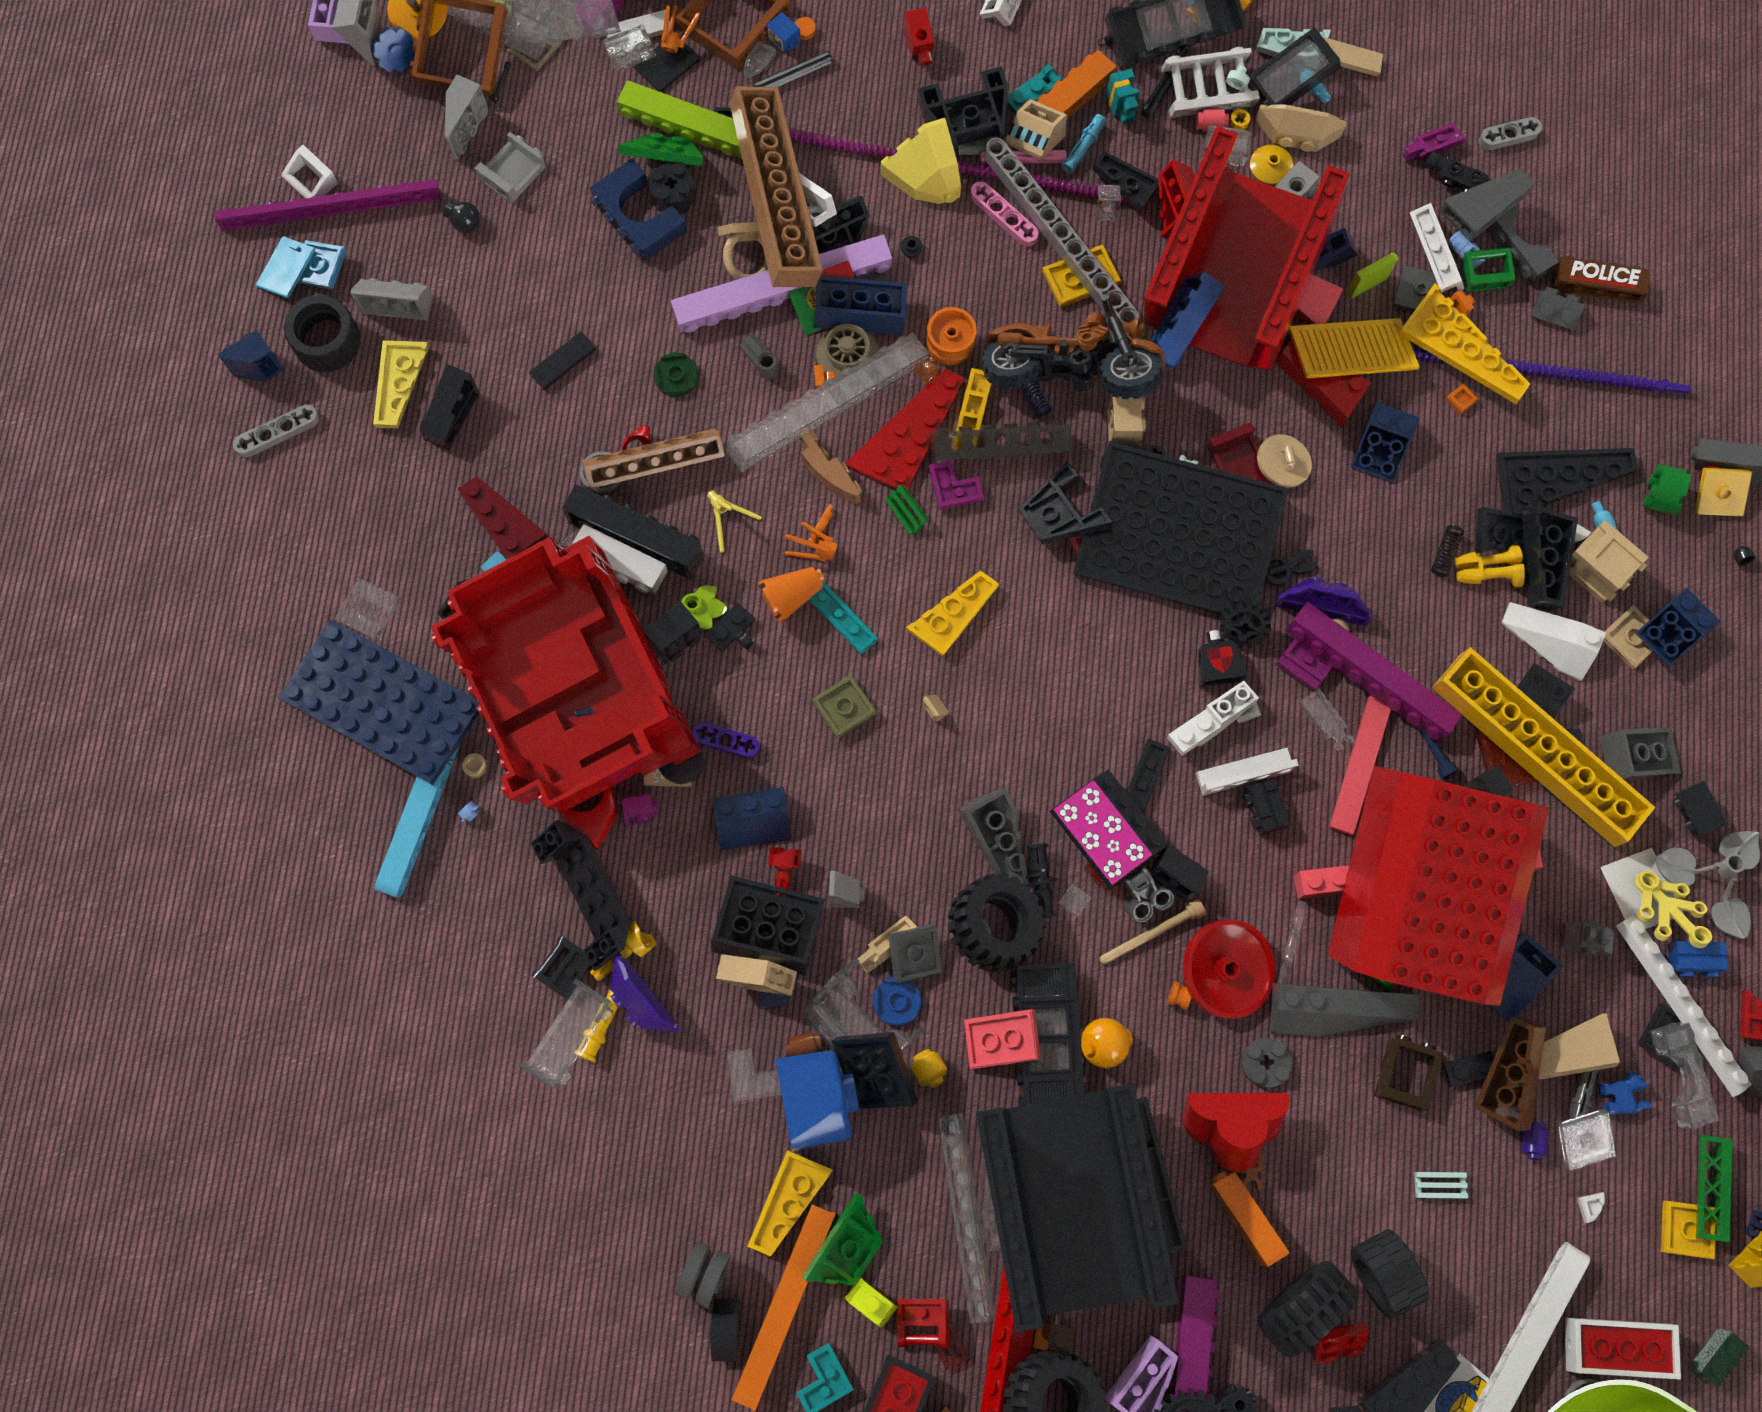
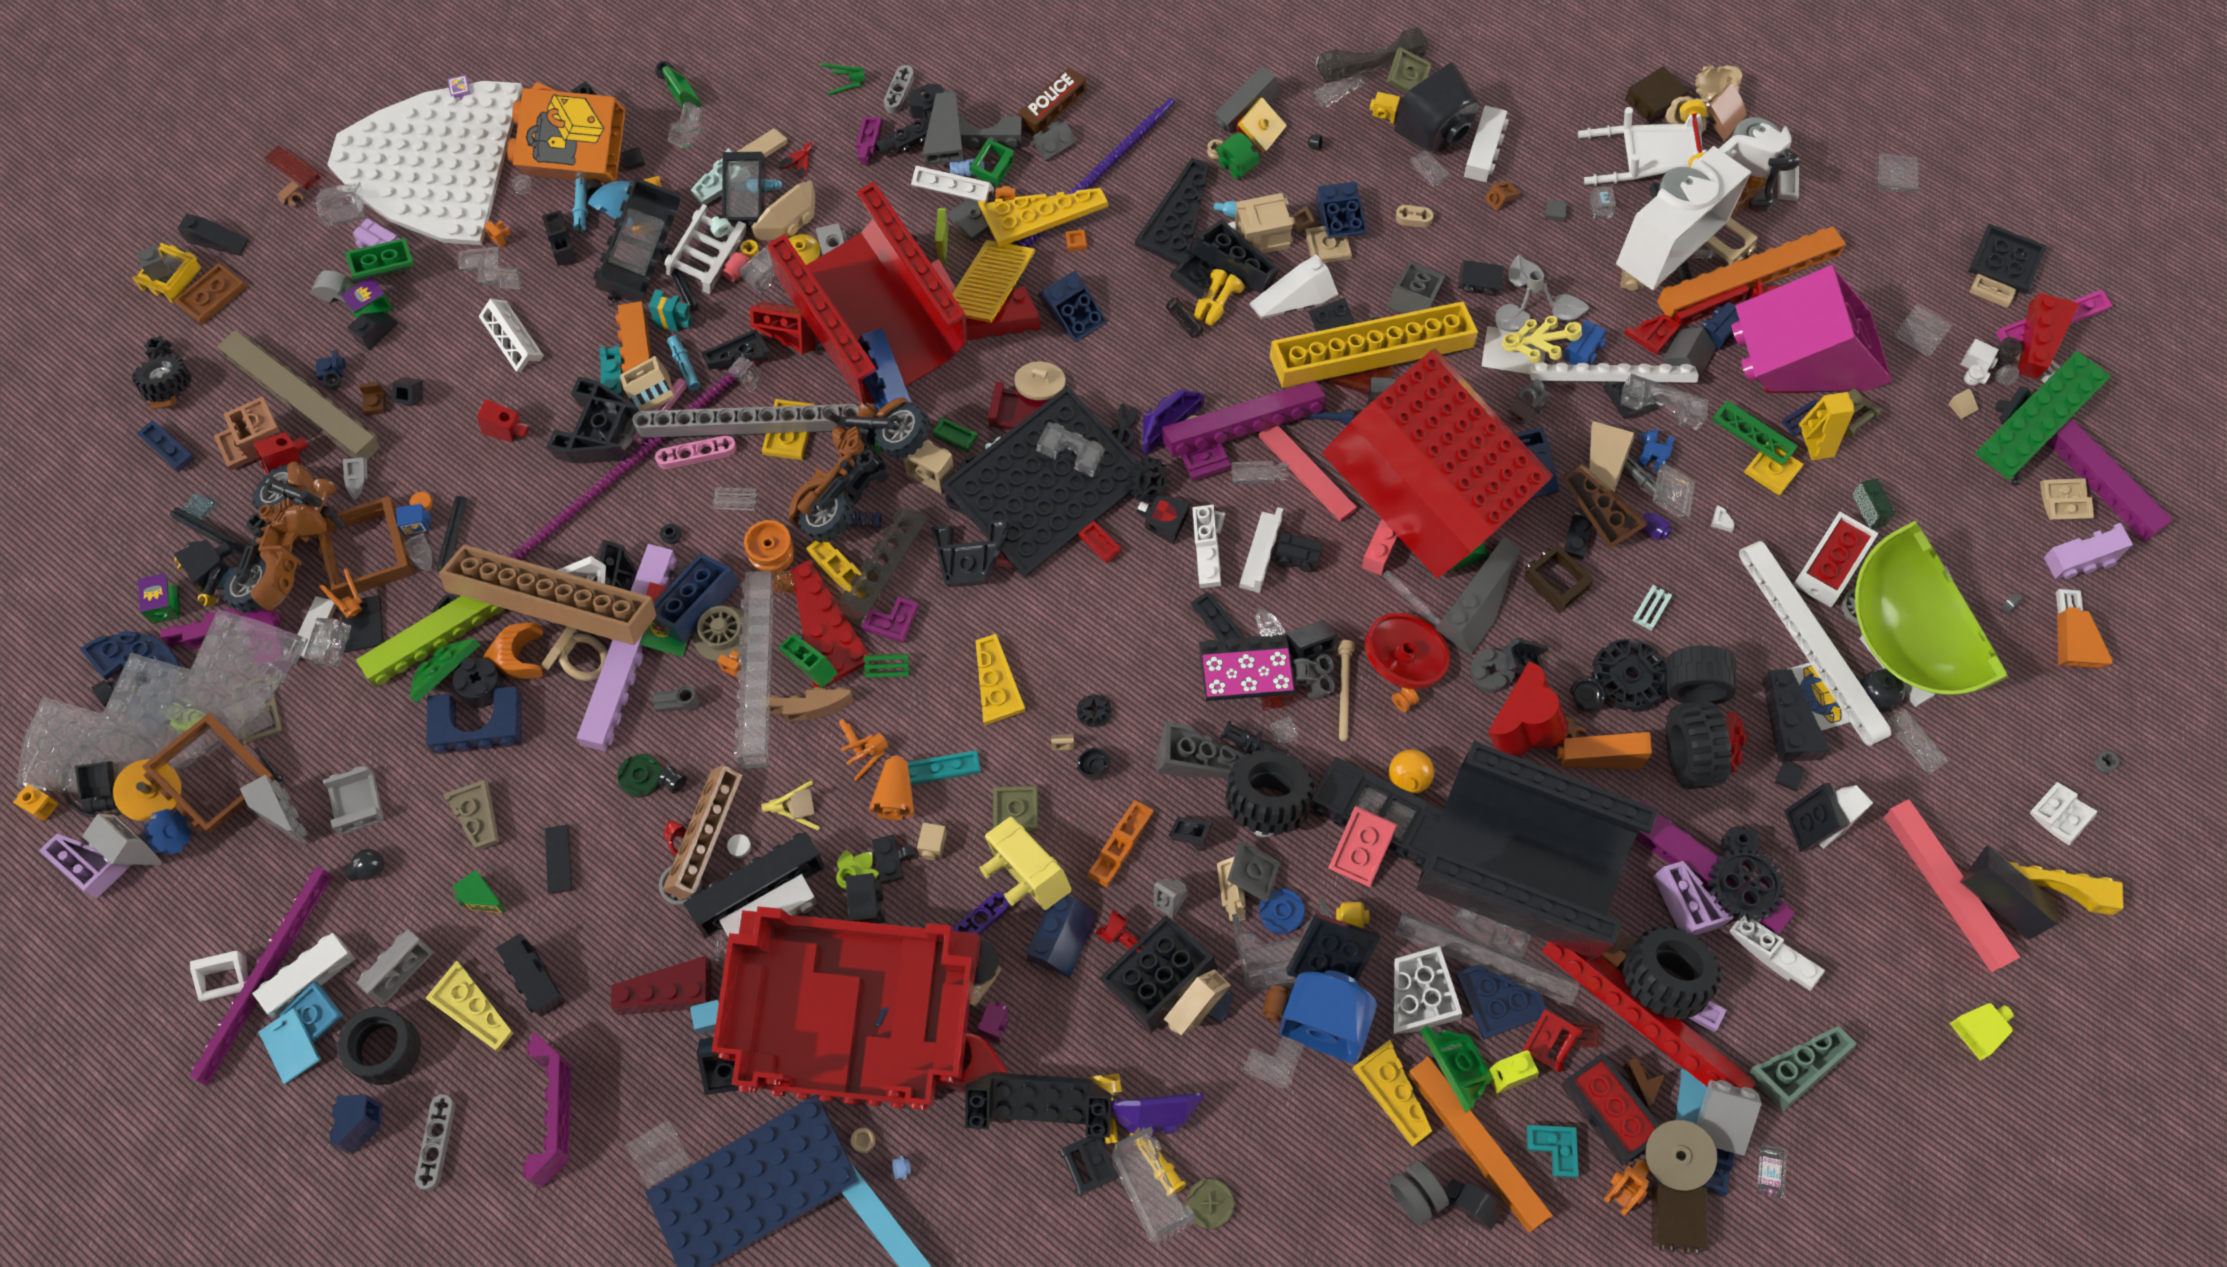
camera: 55 degrees left, 10 degrees down
(352, 505) = (542, 1167): none -> magenta slope
(356, 237) = (315, 965): none -> white brick
(493, 318) = (477, 894): none -> green slope
(560, 268) = (475, 812): none -> dark tan wing
(591, 1093) = (1211, 1203): none -> olive tile
(664, 497) = (739, 846): none -> white tile
(687, 403) = (672, 779): none -> black wheel
(714, 190) = (506, 649): none -> orange animal
(731, 522) = (801, 804): none -> tan slope
(767, 654) = (931, 841): none -> tan brick
(791, 749) = (1027, 863): none -> light yellow piece
(864, 440) = (808, 660): none -> green slope
(870, 818) = (1120, 843): none -> orange slope
(895, 1175) = (1423, 992): none -> white wedge
(918, 873) = (1191, 831): none -> black slope
(925, 165) = (615, 480): light yellow brick -> none
(928, 748) = (1094, 764): none -> black hair
(931, 1251) = (1498, 1001): none -> dark blue plate
(981, 727) = (1102, 715): none -> black gear
(990, 291) = (735, 502): none -> clear tile
(1153, 618) = (1099, 542): none -> red plate
(1172, 823) = (1268, 624): none -> clear plate
(1176, 421) = (954, 434): none -> green tile
(1224, 512) = (1056, 439): none -> clear arch
(1298, 1083) = (1521, 652): none -> black bracket
(1301, 1171) = (1588, 693): none -> black hair
(1336, 1197) = (1627, 686): none -> black plate
(1369, 98) = (801, 157): none -> red piece
(1495, 86) = (856, 75): none -> green plant
(1504, 162) = (922, 105): none -> black hinge
(1644, 598) = (1305, 219): none -> medium nougat slope
(1668, 459) = (1213, 144): none -> tan bush
(1728, 702) = (1414, 216): none -> tan beam

